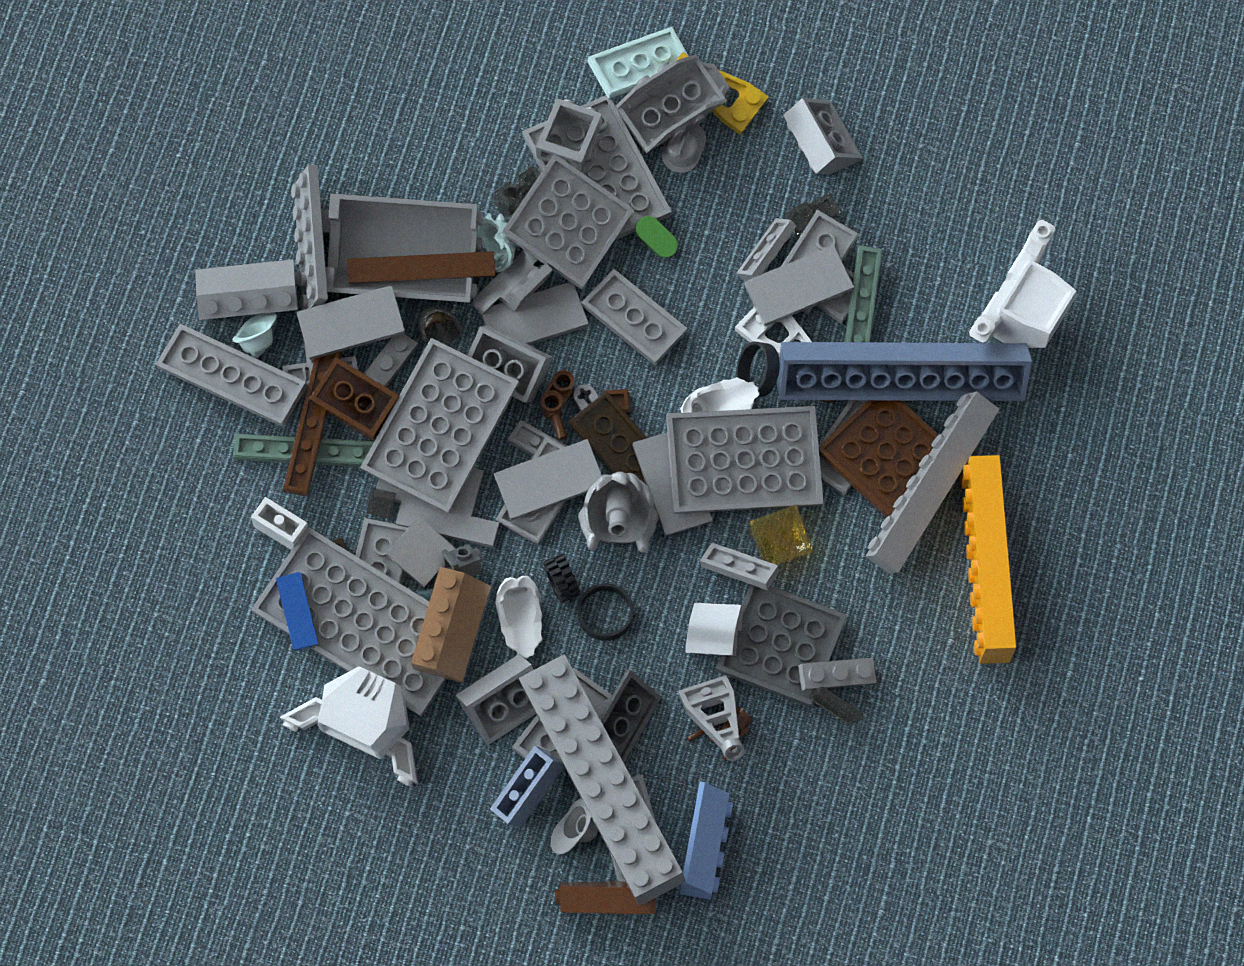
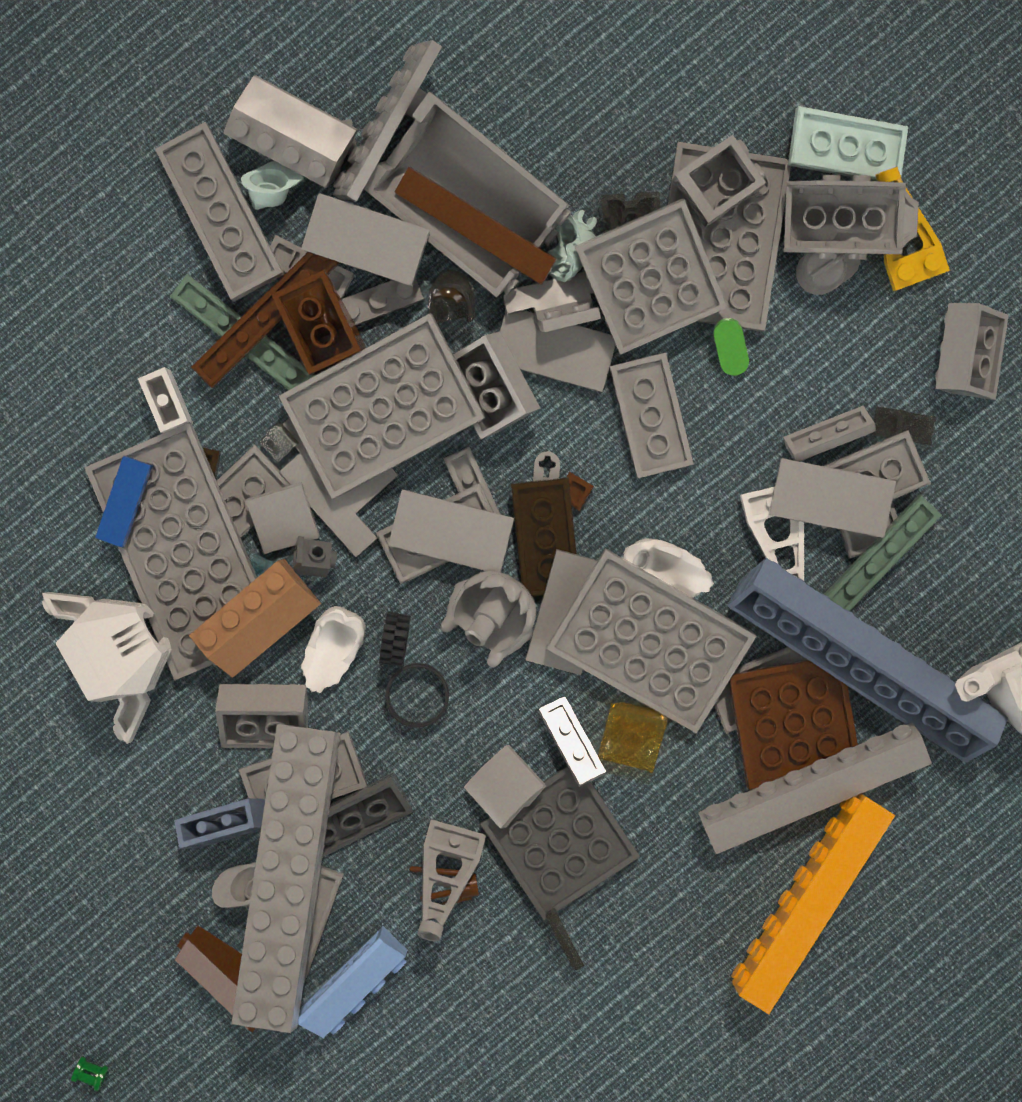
camera: 40 degrees right, 20 degrees up
(560, 396) = (523, 452): reddish brown beam -> none
(772, 365) = (746, 564): black tyre -> none
(837, 673) = (588, 908): light grey plate -> none

